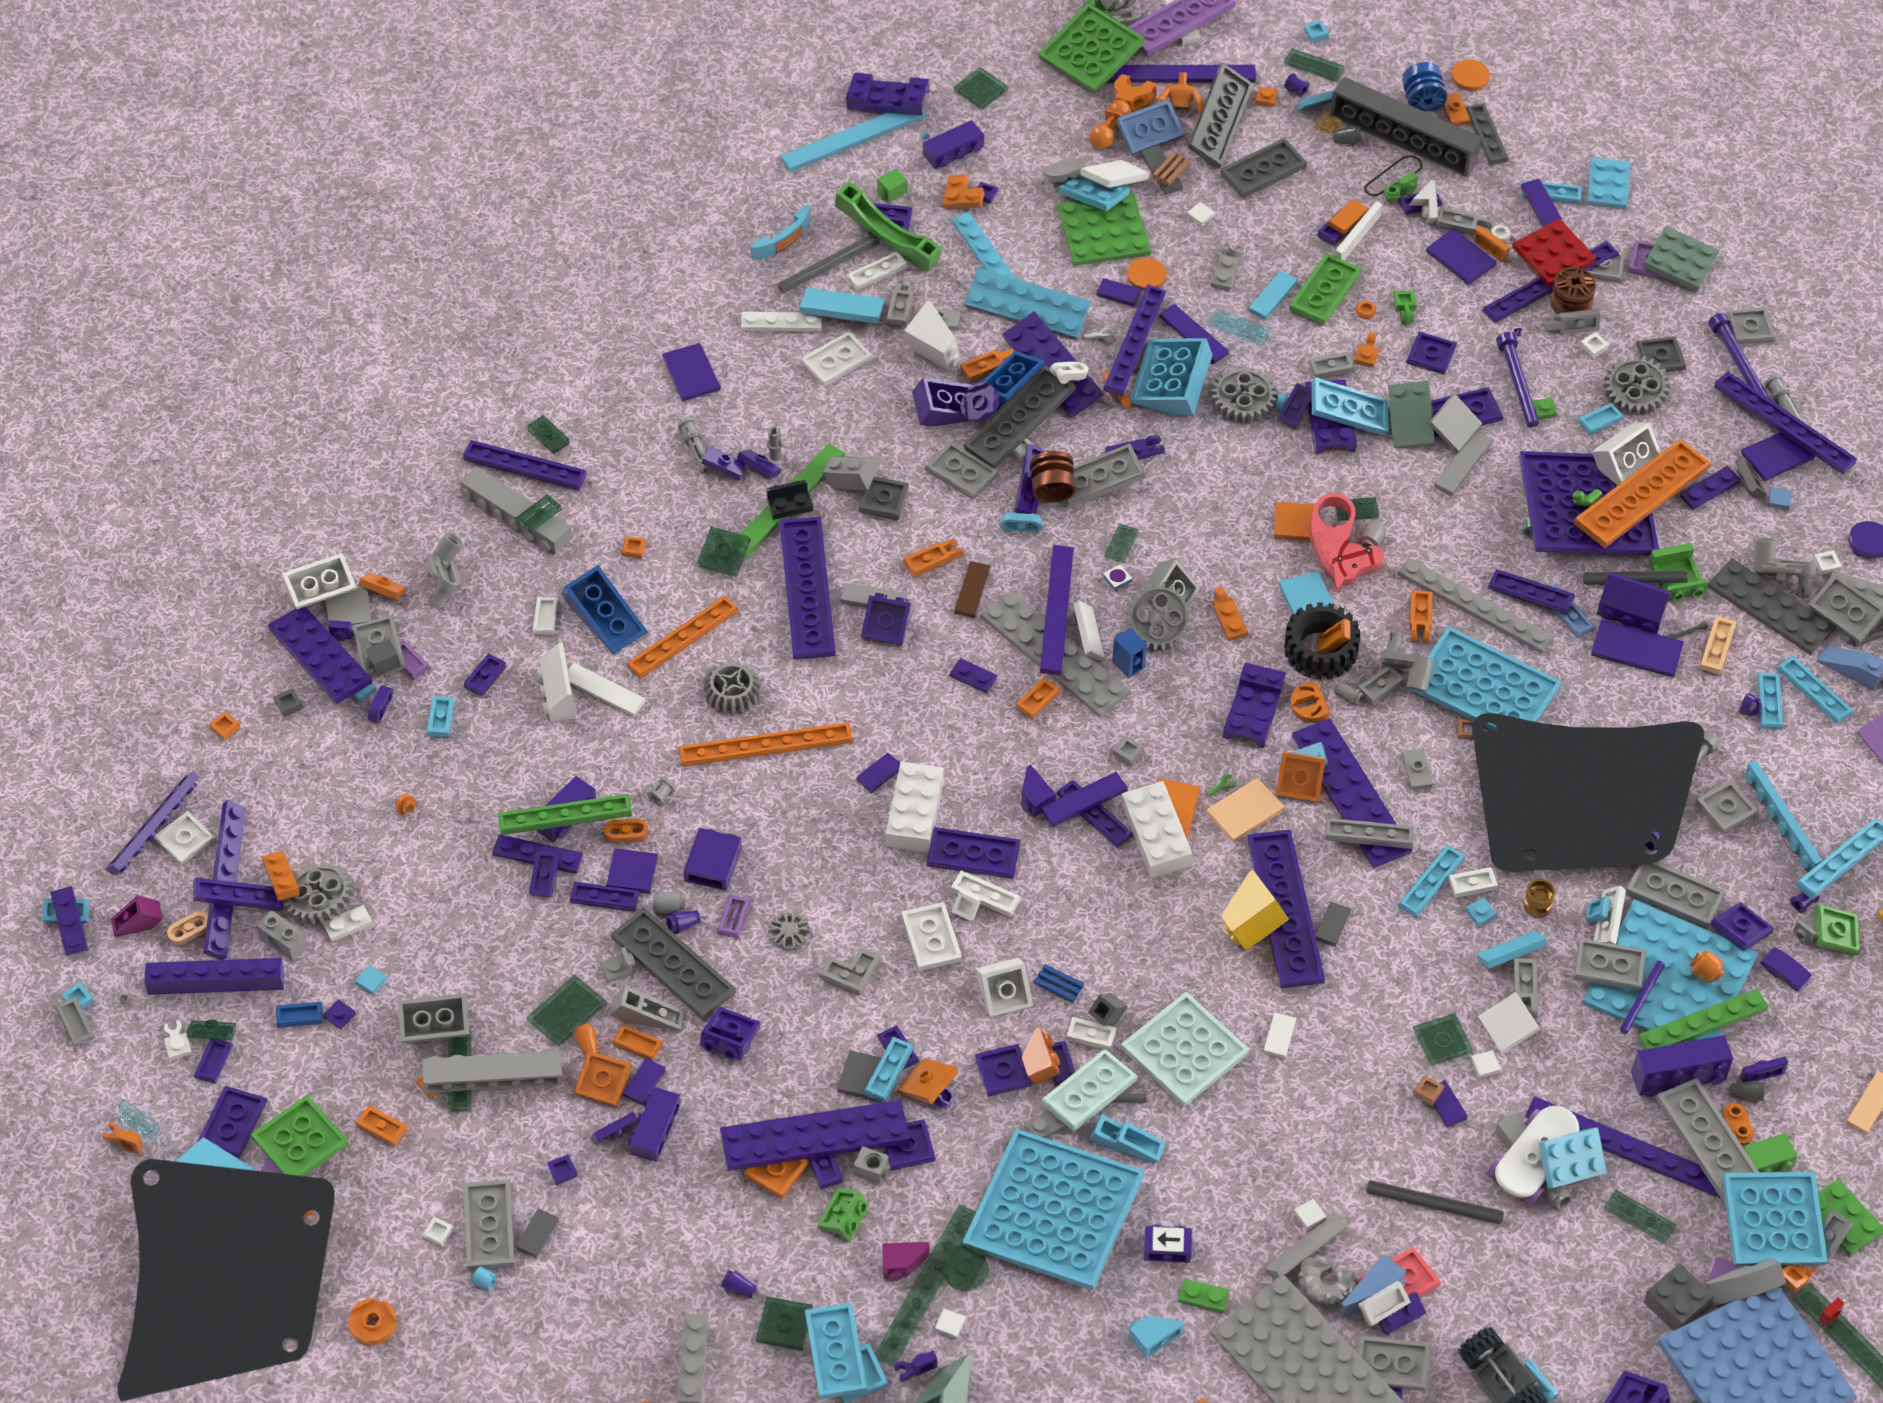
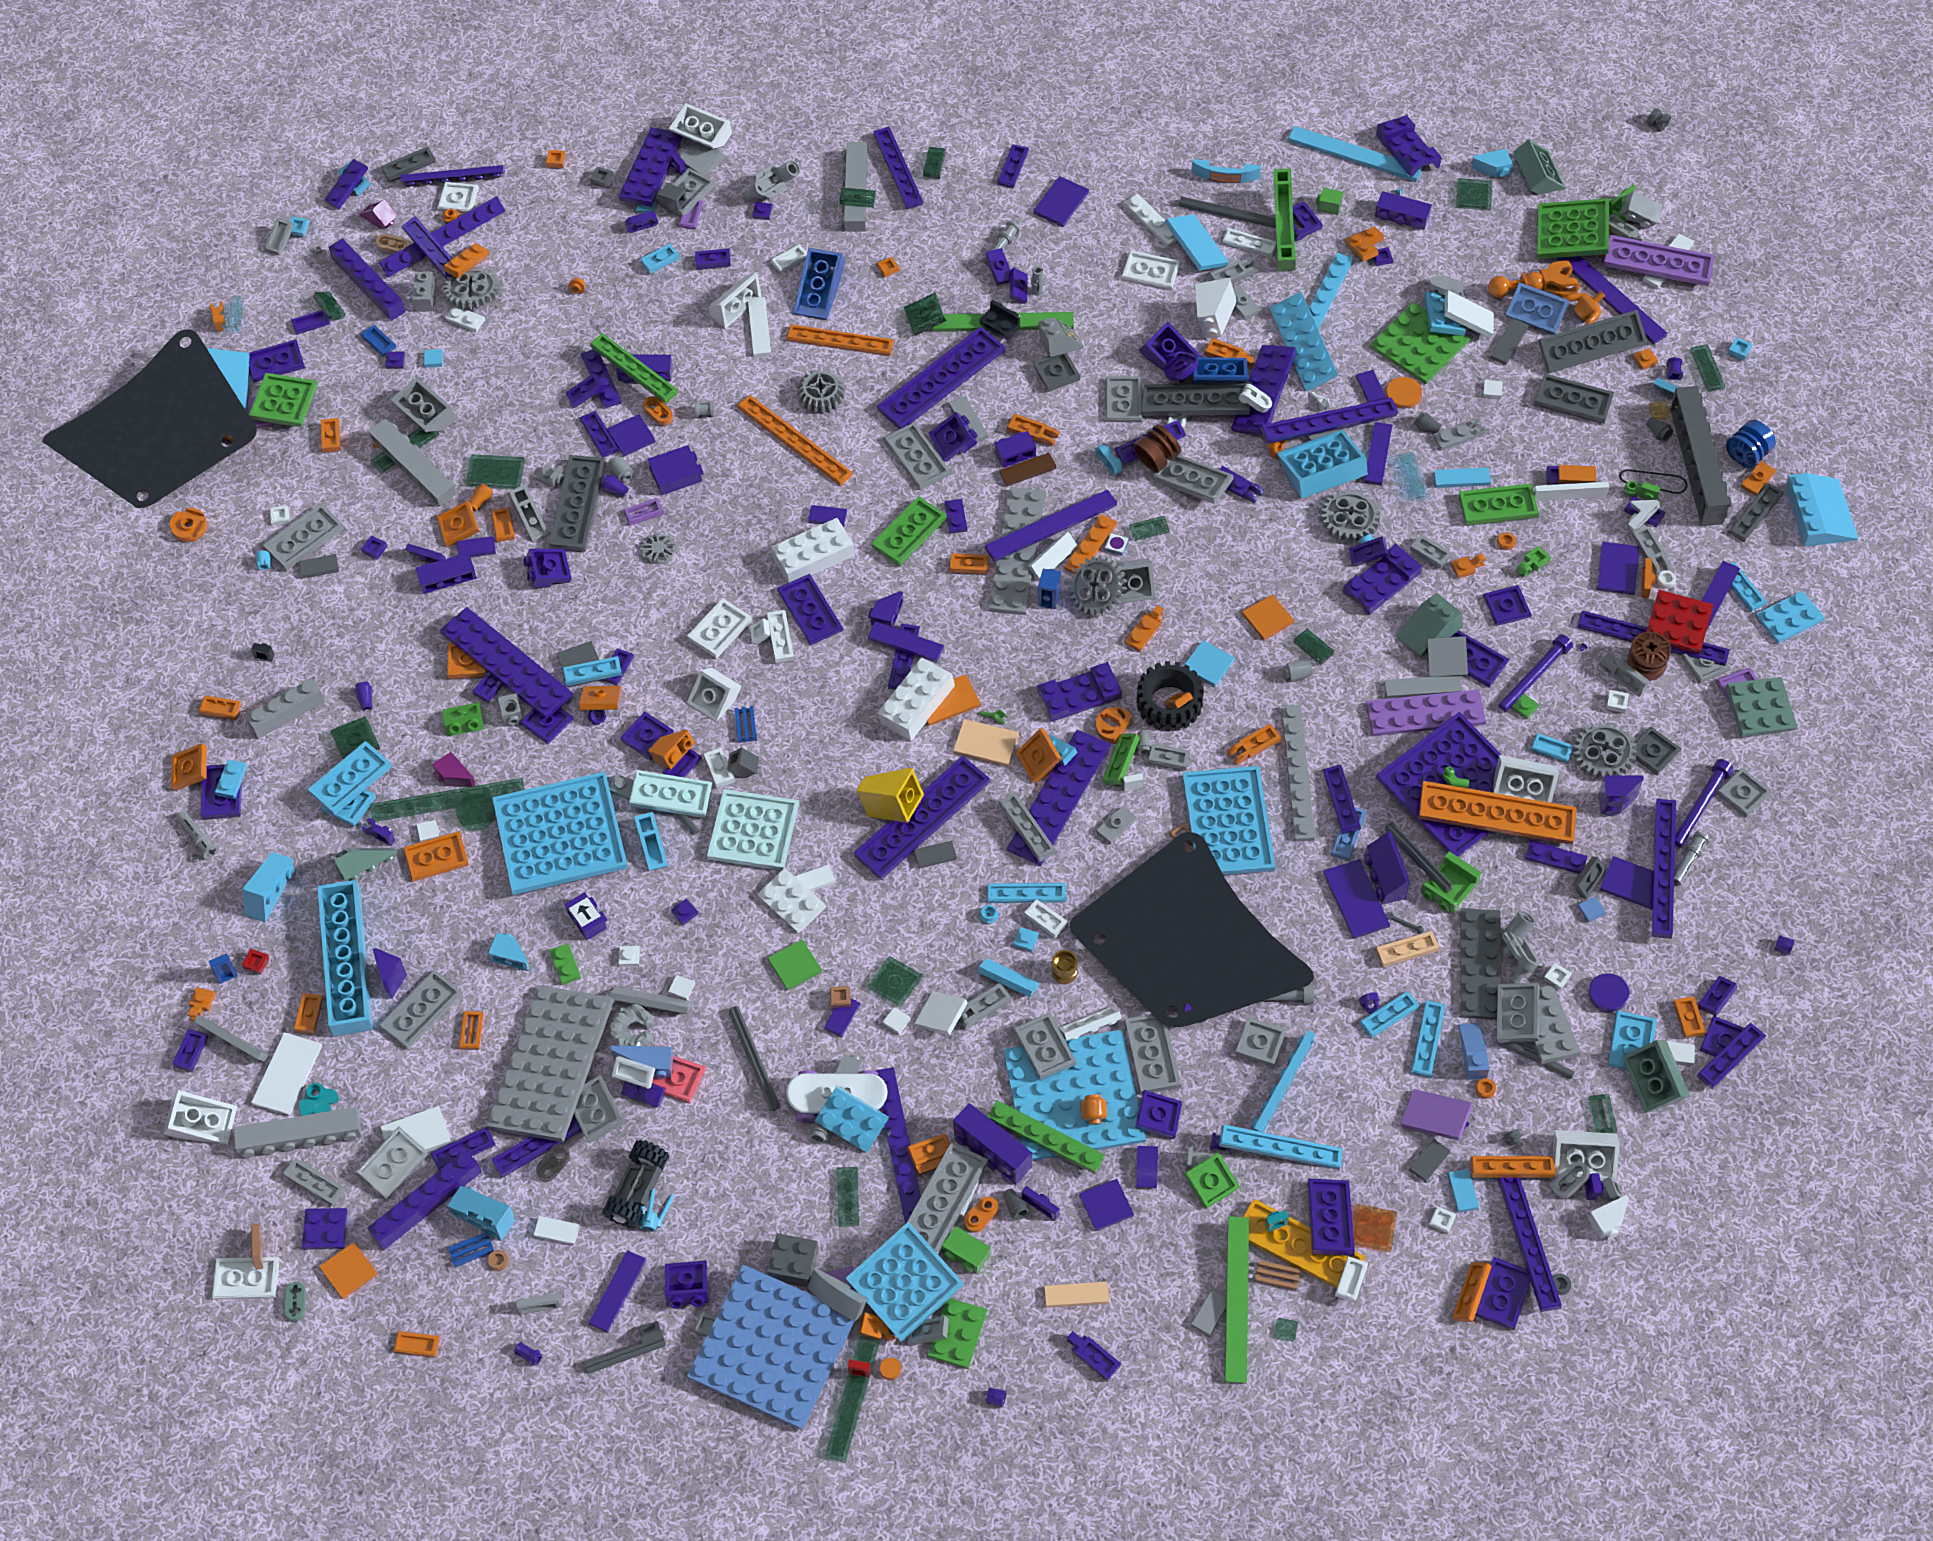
camera: 55 degrees right, 5 degrees up
(96, 853) = (408, 163): none -> dark grey plate
(177, 1043) = (305, 296): white plate -> none
(202, 862) = (450, 215): none -> orange plate
(382, 585) = (733, 161): orange plate -> none
(465, 601) = (762, 210): none -> dark purple plate
(602, 1343) = (262, 651): none -> black plate
(612, 380) = (1013, 166): none -> dark purple tile
(852, 976) = (653, 606): light grey plate -> none
(876, 662) = (917, 456): none -> light grey tile
(943, 583) = (1015, 449): none -> dark purple brick
(958, 720) = (909, 531): none -> bright green plate
(965, 52) = (1493, 163): none -> medium azure slope
(985, 1333) = (436, 856): none -> orange tile
(1000, 29) = (1538, 168): none -> sand green slope
(1100, 597) = (1091, 543): none -> orange plate
(1128, 750) = (972, 642): light grey plate -> none
(1171, 162) = (1514, 344): nougat tile -> none
(1195, 279) = (1428, 423): none -> dark grey cone
(1227, 1161) = (684, 911): none -> dark purple plate
(1239, 1236) = (629, 956): none -> white plate
(1289, 1066) = (791, 900): none -> white plate
(1334, 552) = (1256, 660): coral animal -> none
(1350, 406) = (1395, 581): medium azure plate -> none
(1353, 720) = (1121, 759): none -> bright green plate
(1360, 1107) = (795, 964): none -> bright green tile
(1386, 726) = (1133, 782): none -> white tile
(1419, 666) = (1197, 762): light grey piece -> none
(1434, 918) = (989, 909): none -> medium azure plate
(1470, 75) = (1801, 463): orange tile -> none
(1490, 479) = (1423, 712): none -> medium lavender plate
(1522, 94) = (1820, 509): none -> medium azure slope
(1598, 910) = (1090, 1011): medium azure tile -> none
(1642, 996) = (1034, 1084): dark purple bar -> none
(1649, 1122) = (928, 1153): none -> orange plate
(1691, 403) = (1618, 793): none -> dark purple slope
(1799, 1023) = (1106, 1204): none -> dark purple tile
(1843, 1290) = (890, 1368): none -> orange tile

